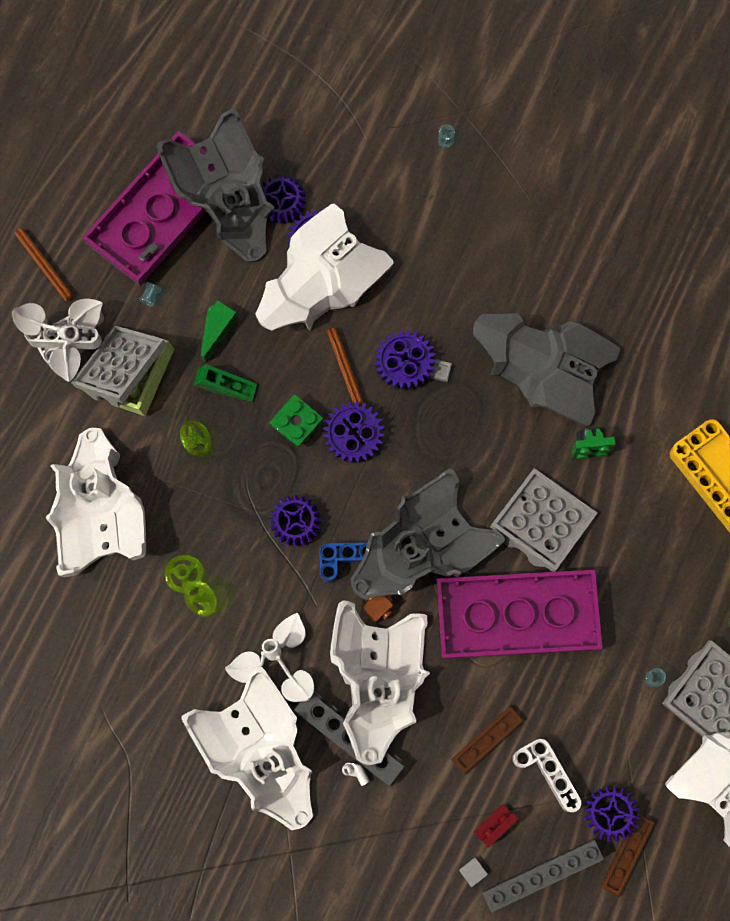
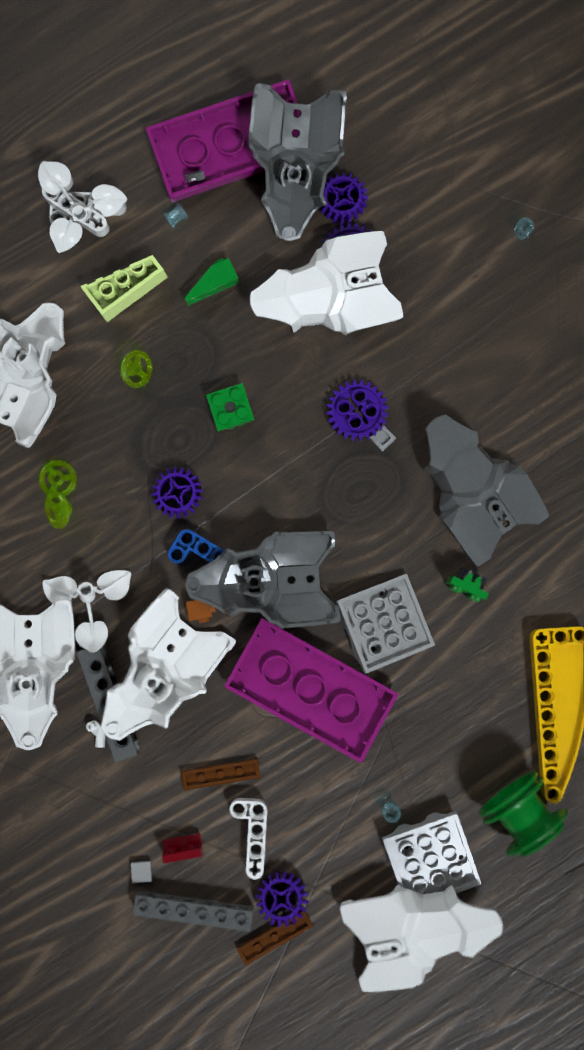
camera: 30 degrees right, 10 degrees up
(43, 264) = (101, 130): dark orange axle -> none
(118, 365) = (109, 264): light grey piece -> none
(224, 383) = (191, 336): green slope -> none
(345, 366) = (302, 388): dark orange axle -> none
(367, 421) = (256, 449): dark purple gear -> none

